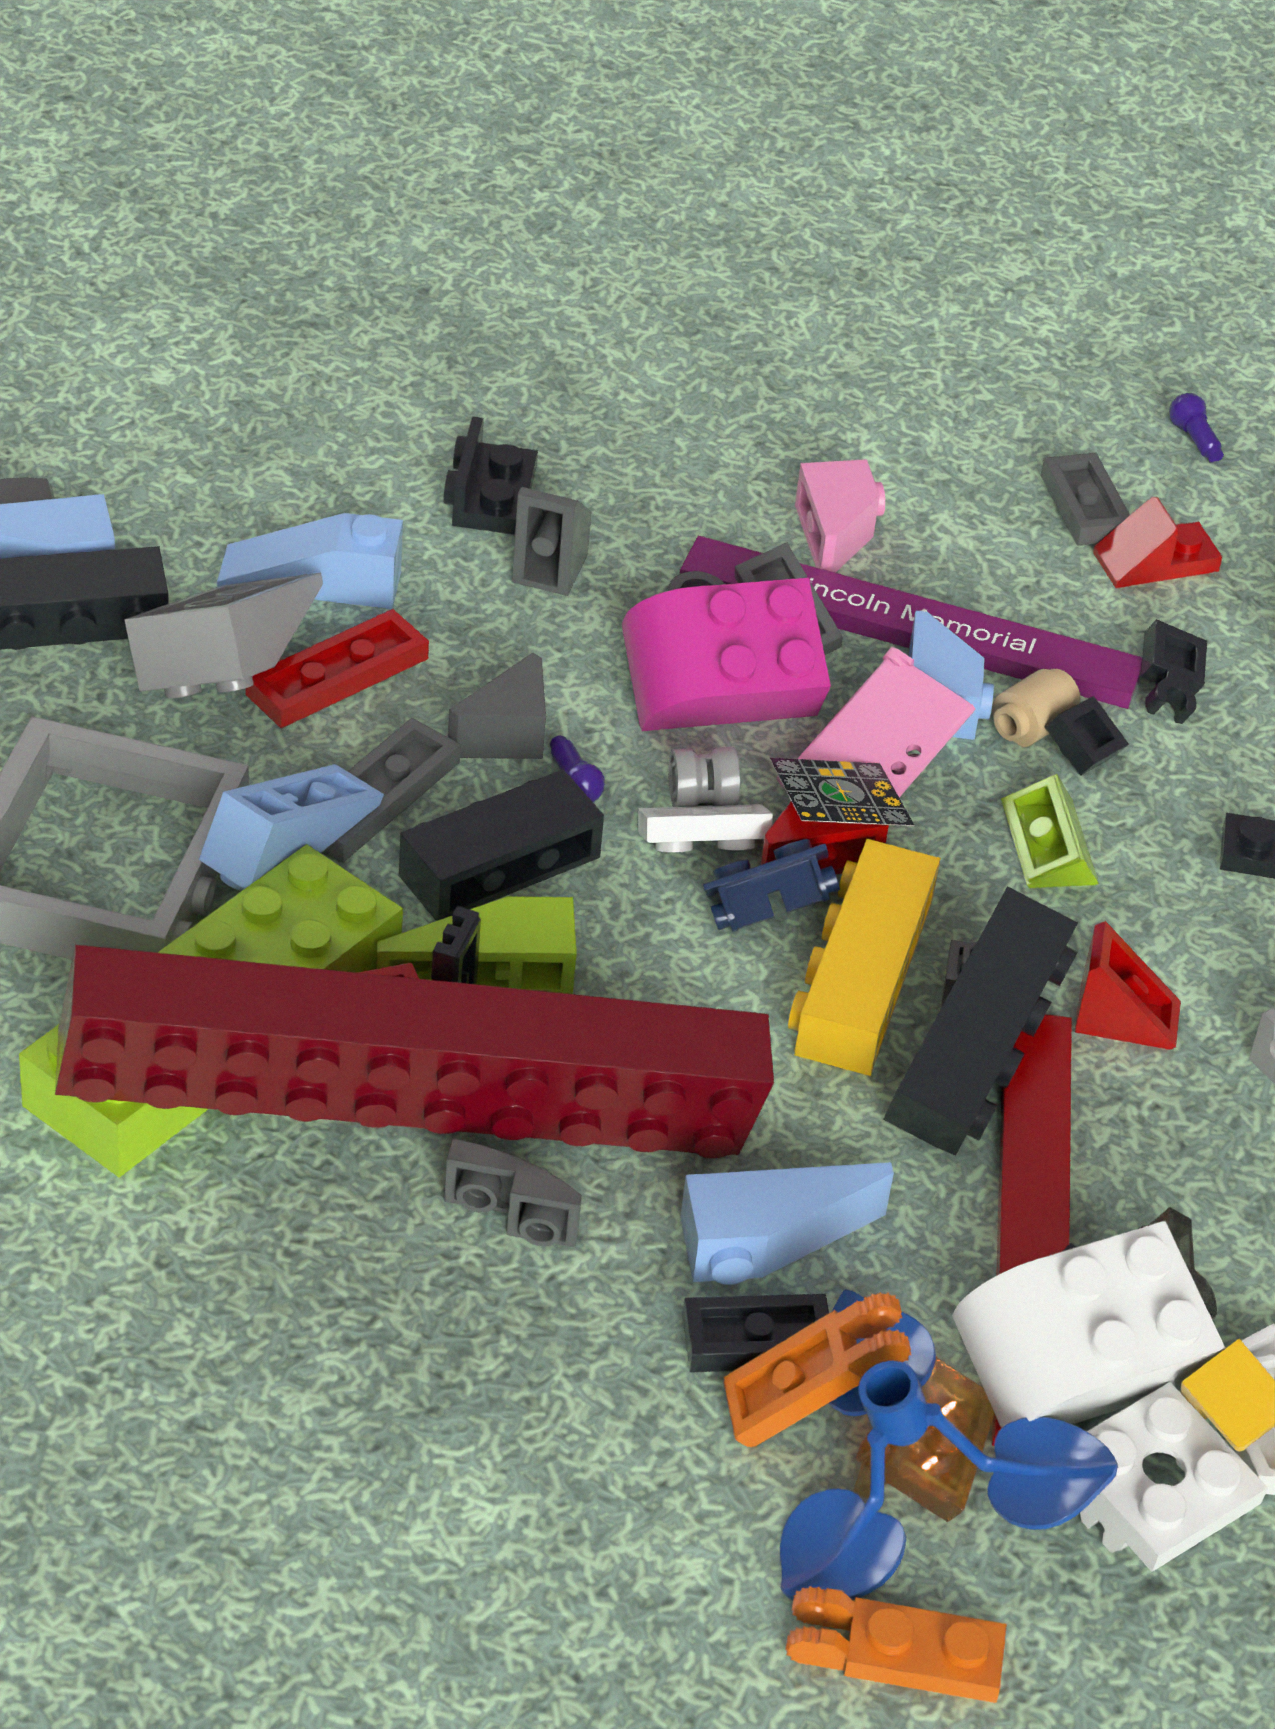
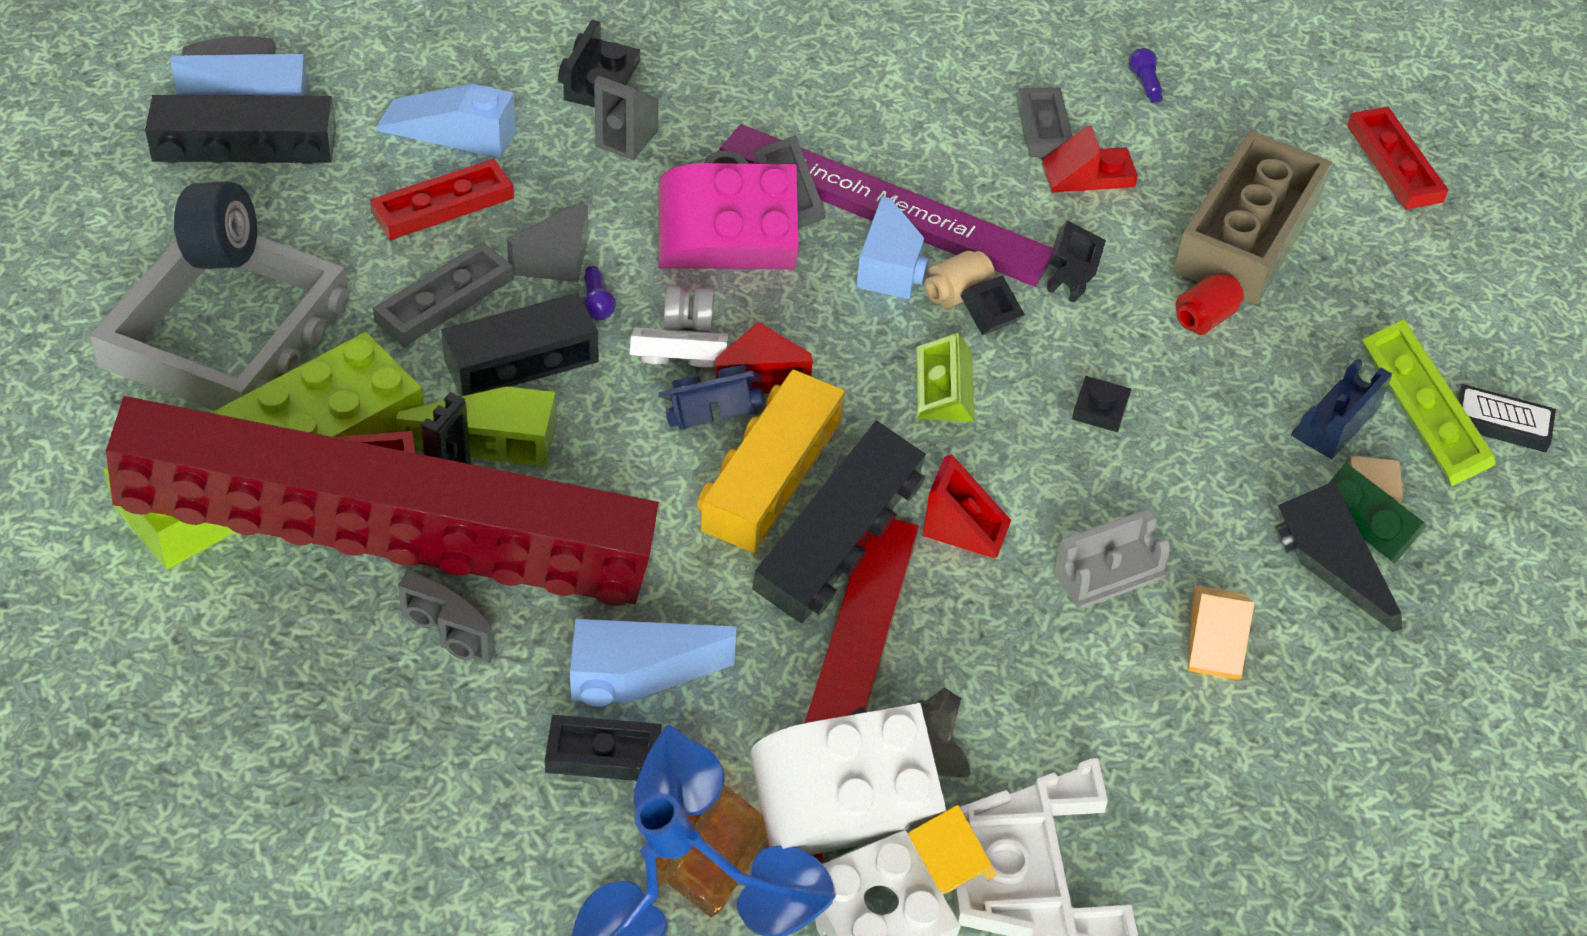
camera: 10 degrees right, 5 degrees up
(74, 725) = (215, 225): none -> black wheel
(219, 635) = (356, 166): light grey slope -> none
(275, 818) = (344, 309): light blue slope -> none
(813, 1367) = (625, 781): orange hinge -> none
(838, 509) = (852, 114): bright pink slope -> none
(841, 792) = (783, 331): sticker -> none
(889, 717) = (824, 289): bright pink door -> none

